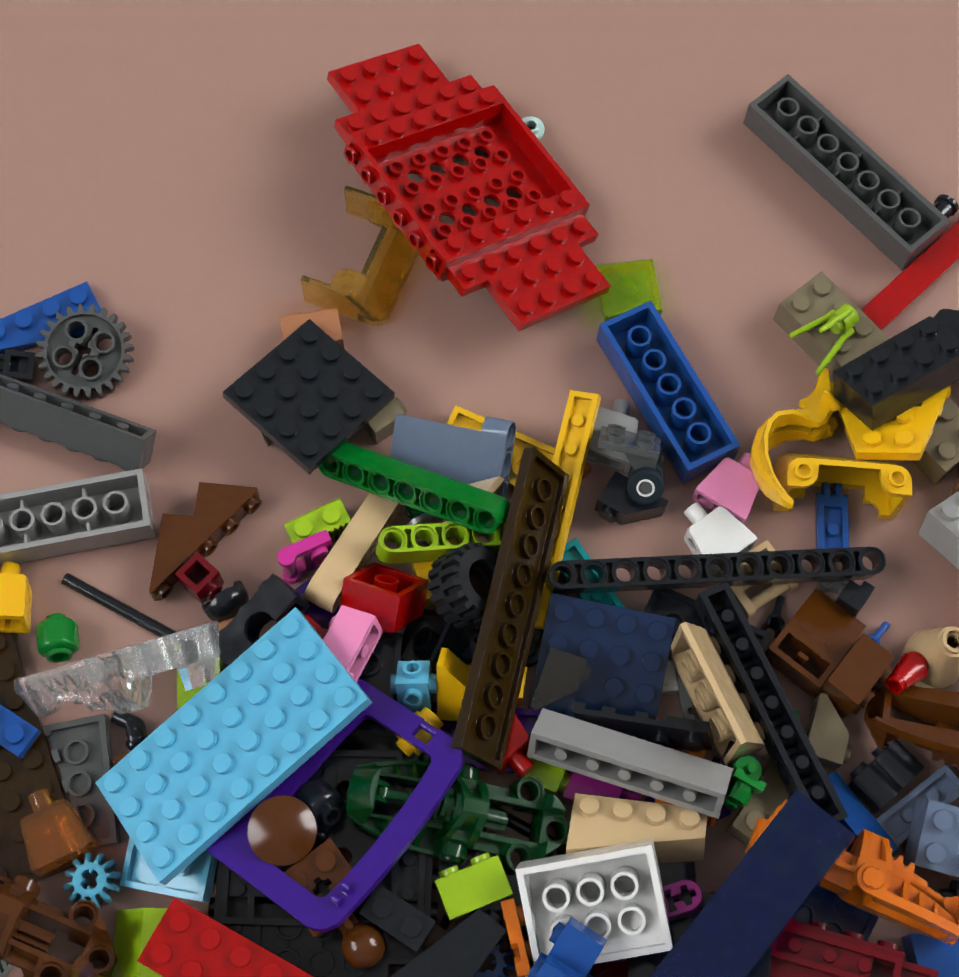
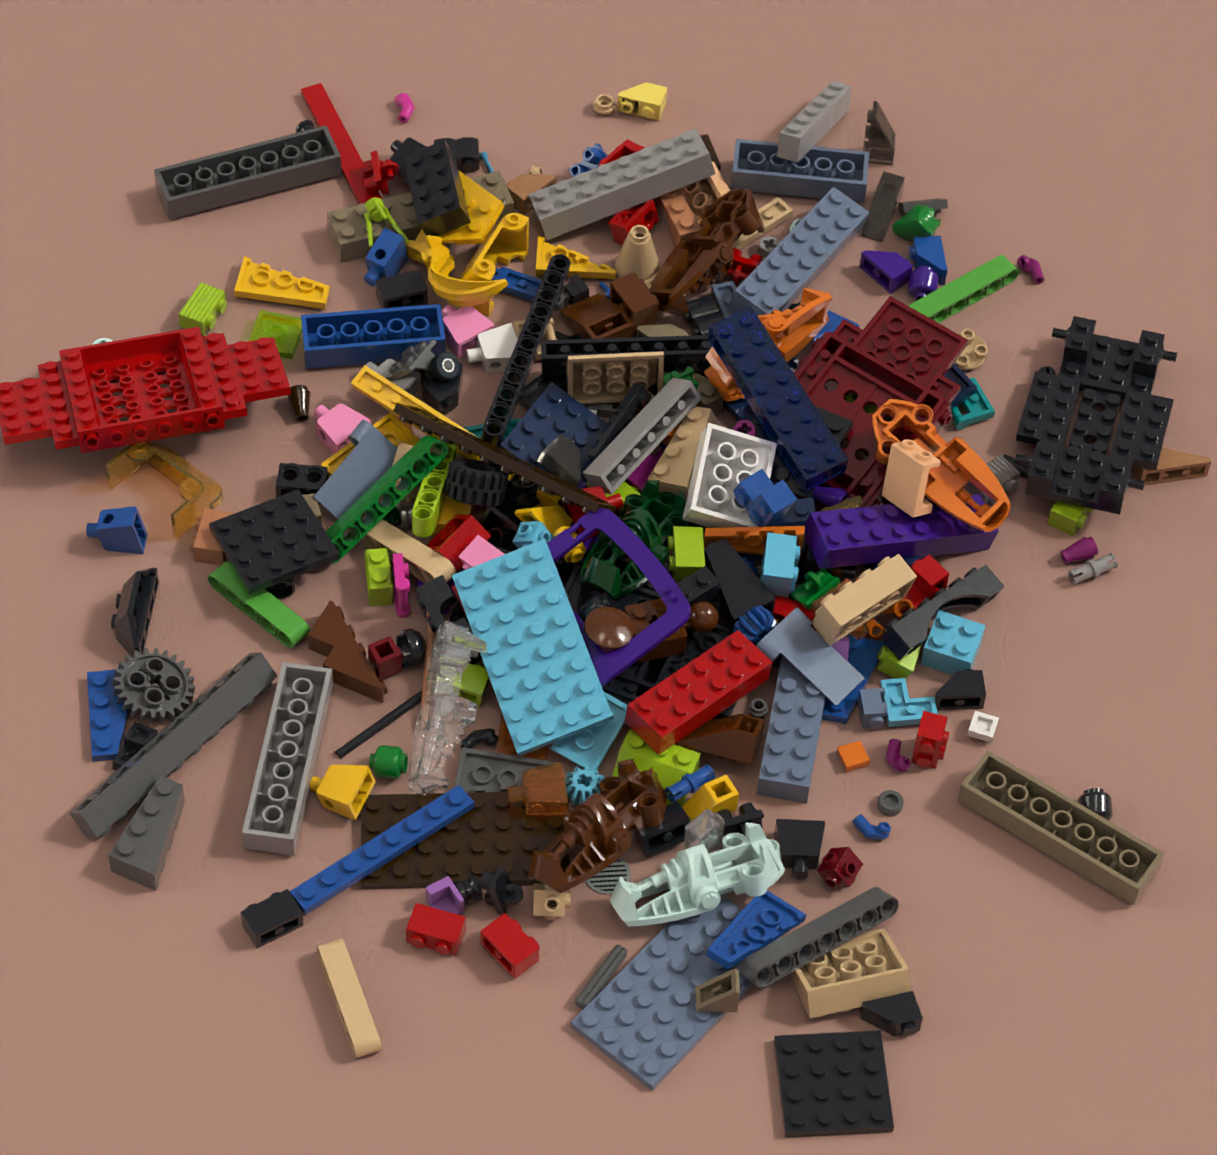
camera: 70 degrees left, 15 degrees down
(177, 298) = (135, 610): none -> black wedge
(225, 435) = (260, 607): none -> bright green beam
(277, 228) = (120, 530): none -> blue torso
(419, 397) = (302, 477): none -> black brick
(522, 403) = (336, 425): none -> bright pink torso
(541, 350) = (300, 402): none -> dark brown cone
(627, 202) = (203, 308): none -> lime brick
(698, 260) = (270, 285): none -> yellow wing
(752, 396) = (402, 290): none -> black brick
(788, 361) = (385, 257): none -> blue torso
(899, 574) = (579, 263): none -> yellow wing
(908, 671) = (645, 272): red cone -> none
(917, 306) = (381, 172): none -> red hips

